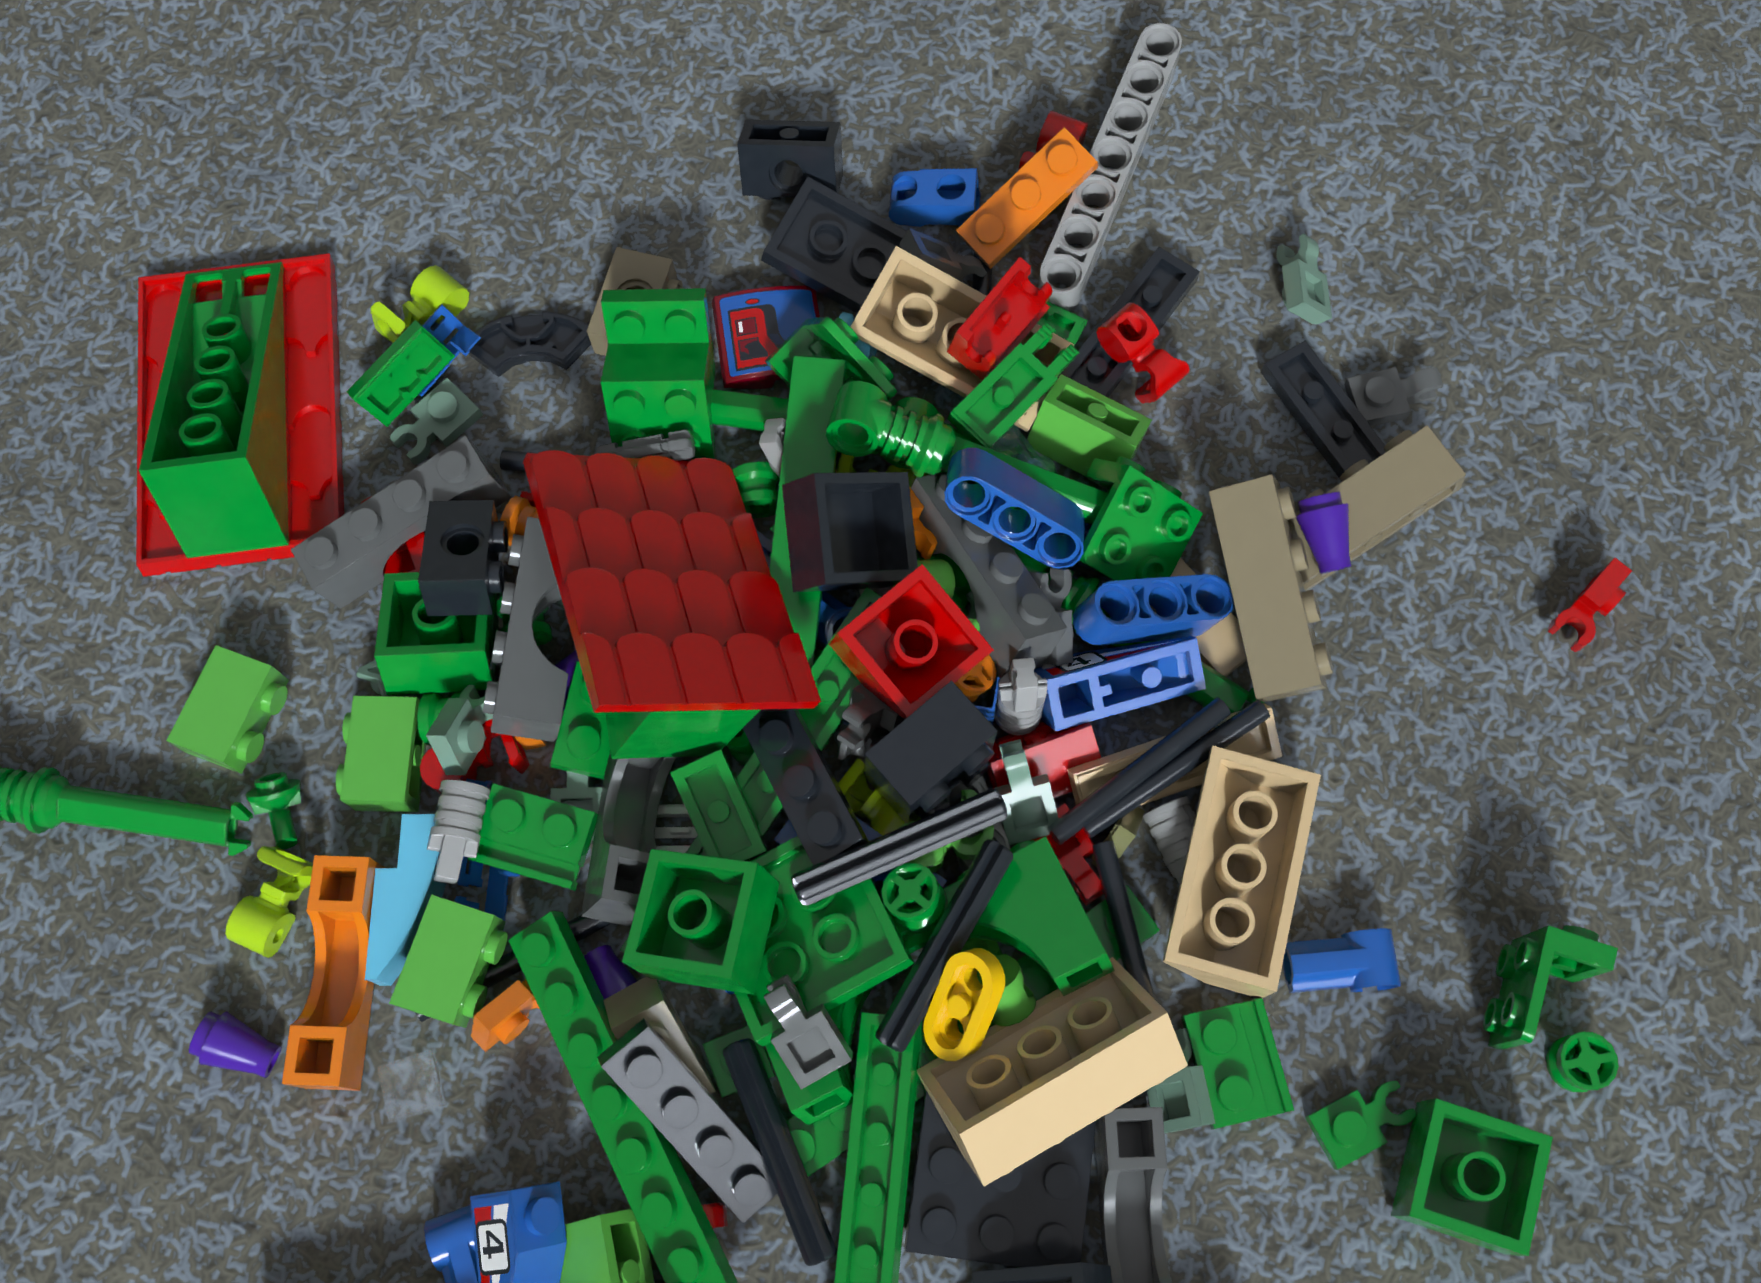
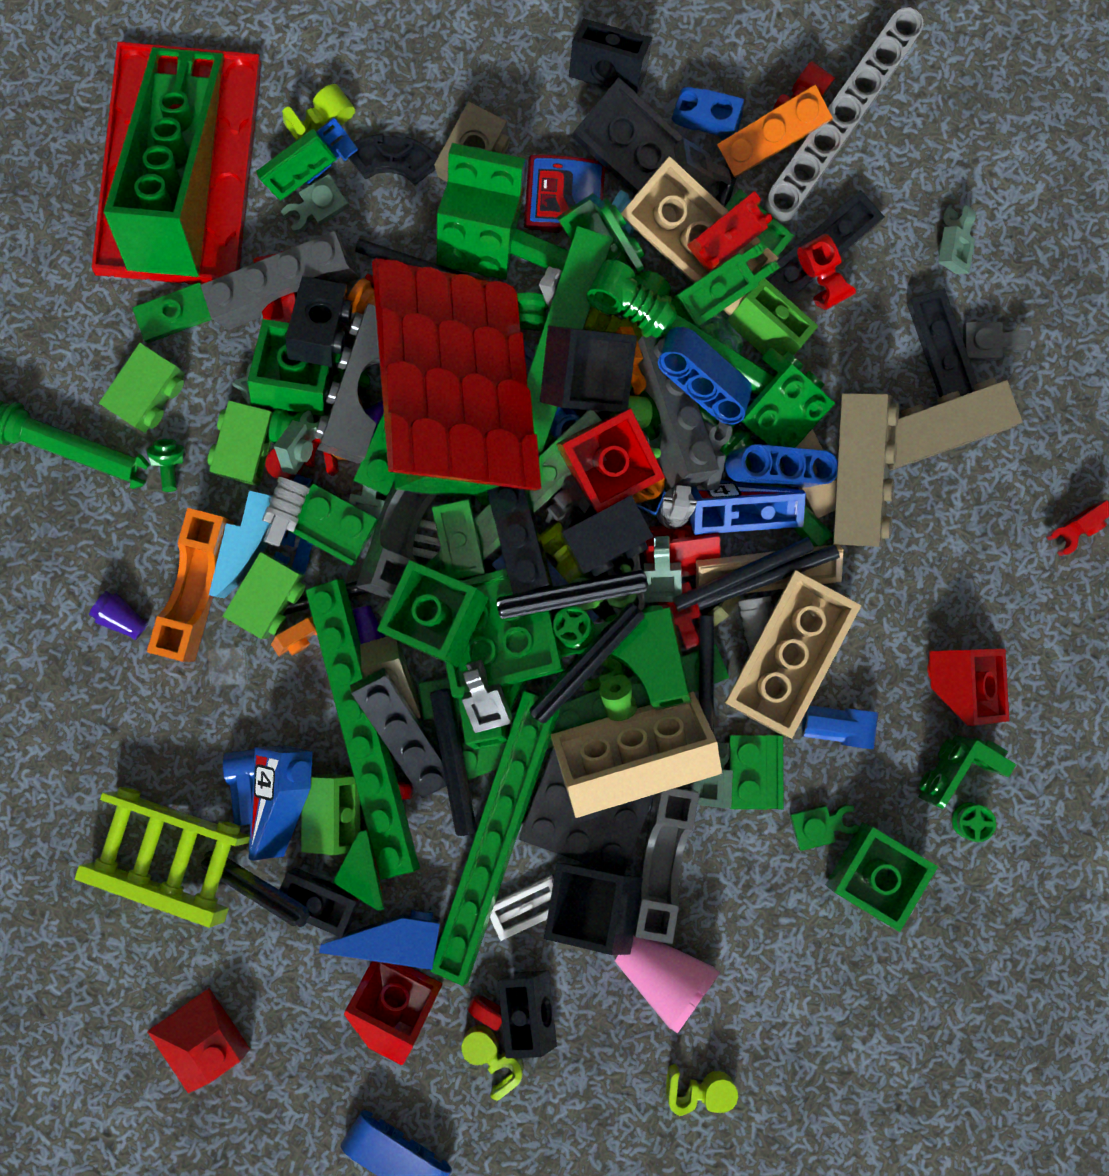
camera: 10 degrees right, 15 degrees up
(259, 602) = (172, 313): none -> green plate
(264, 919) = (148, 537): lime leg -> none
(678, 446) = (482, 268): dark grey axle -> none
(964, 999) = (592, 701): yellow plate -> none
(1326, 530) = (914, 438): dark purple cone -> none
(1511, 854) = (972, 683): none -> red slope

